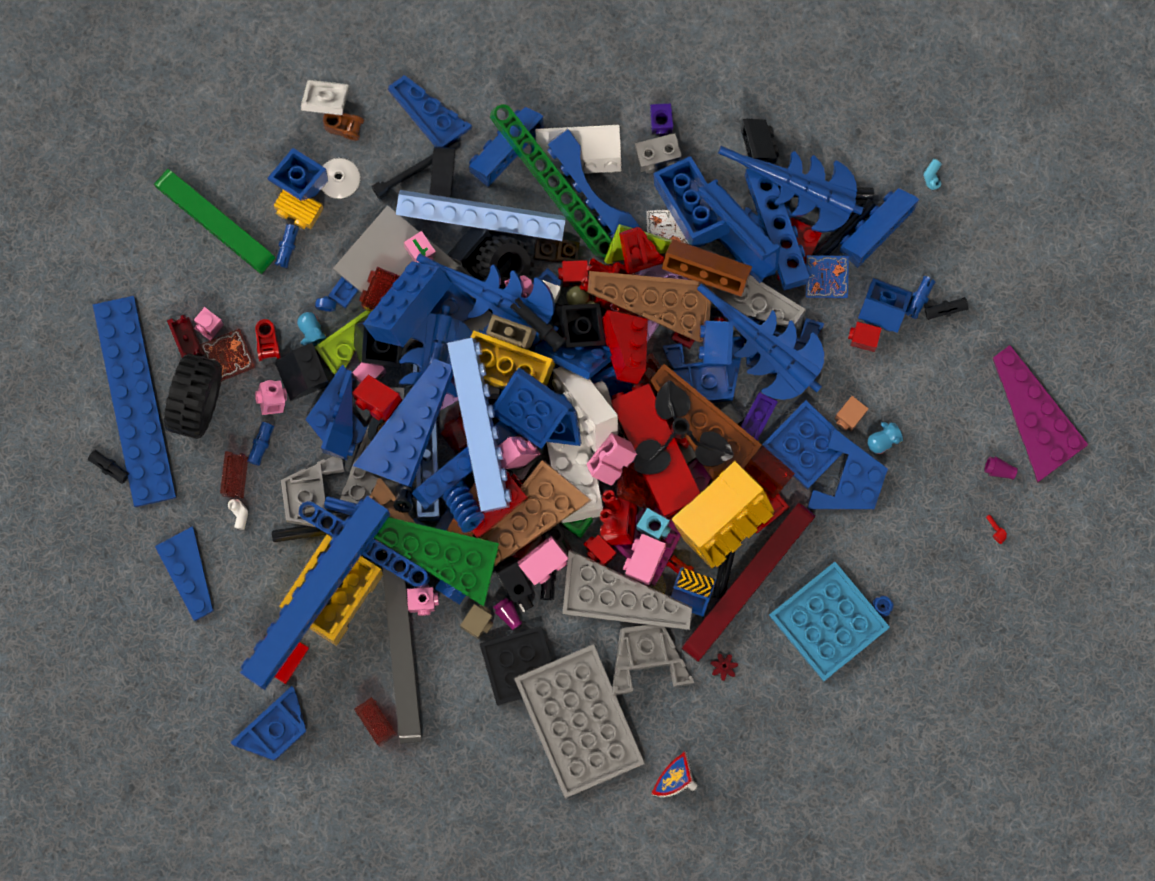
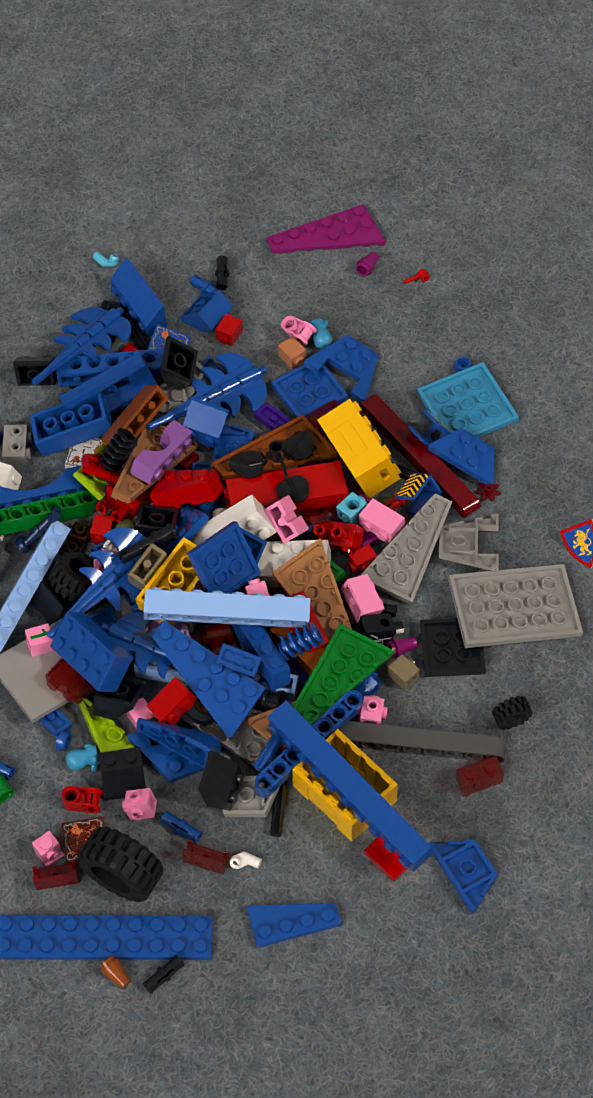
camera: 75 degrees left, 20 degrees down
(101, 421) = (115, 972): none -> dark orange cone
(304, 468) = (220, 782): none -> black slope
(425, 451) = (238, 660): none -> blue plate
(450, 741) = (512, 712): none -> black tyre
(539, 198) = (24, 543): none -> dark blue piece
(639, 300) = (151, 464): none -> medium lavender arch
(653, 262) = (118, 450): none -> black piece
(758, 634) = (467, 454): none -> blue wing
(772, 590) = (426, 437): none -> blue piece
(781, 294) = (178, 364): none -> black slope
(879, 412) = (298, 329): none -> bright pink piece

